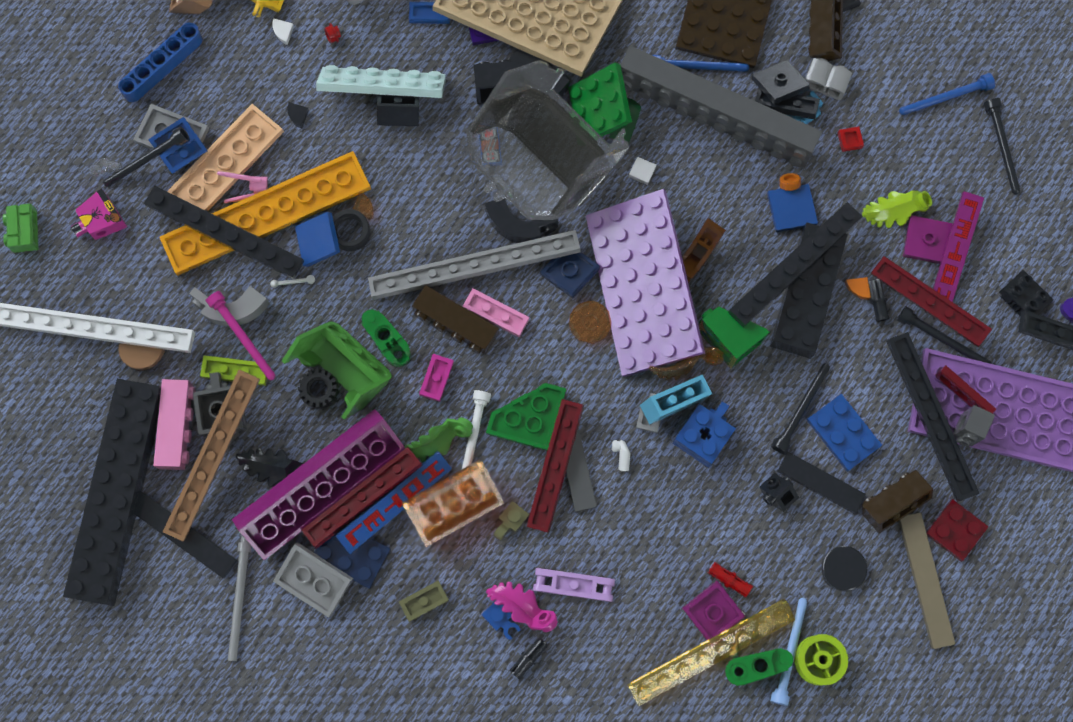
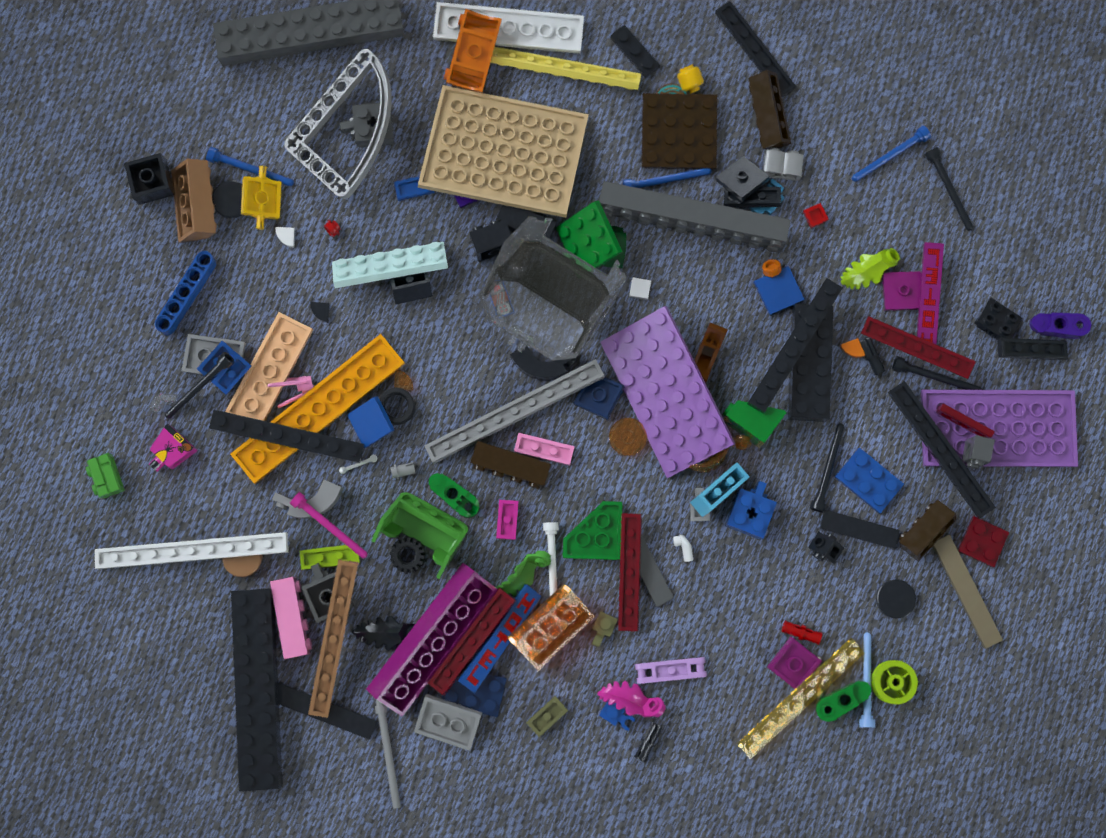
camera: 15 degrees left, 5 degrees up
(337, 298) = (402, 470): none -> light grey pin

